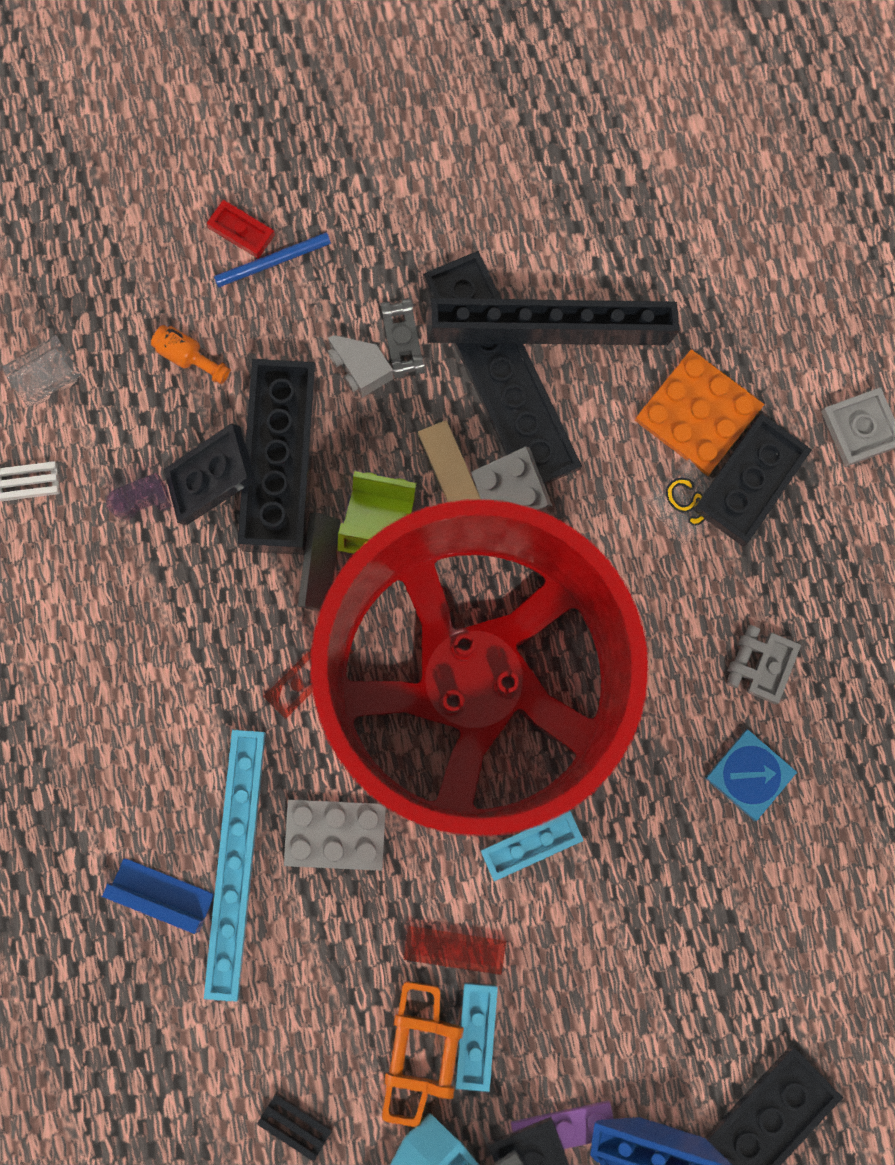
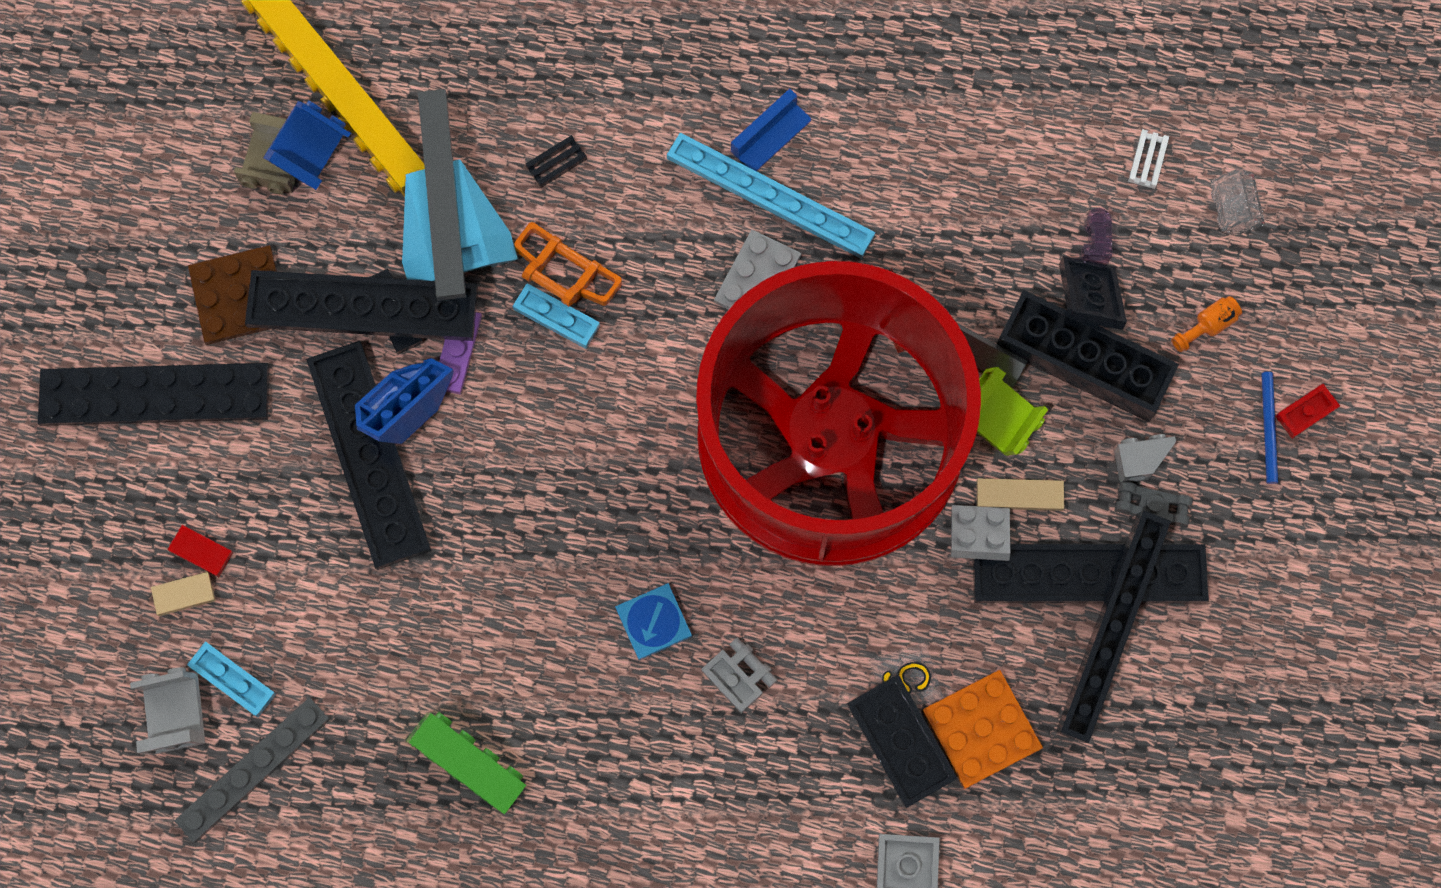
camera: 120 degrees right, 5 degrees down
(454, 950) = (627, 329): clear red tile -> none
(531, 846) = (679, 420): medium azure plate -> none

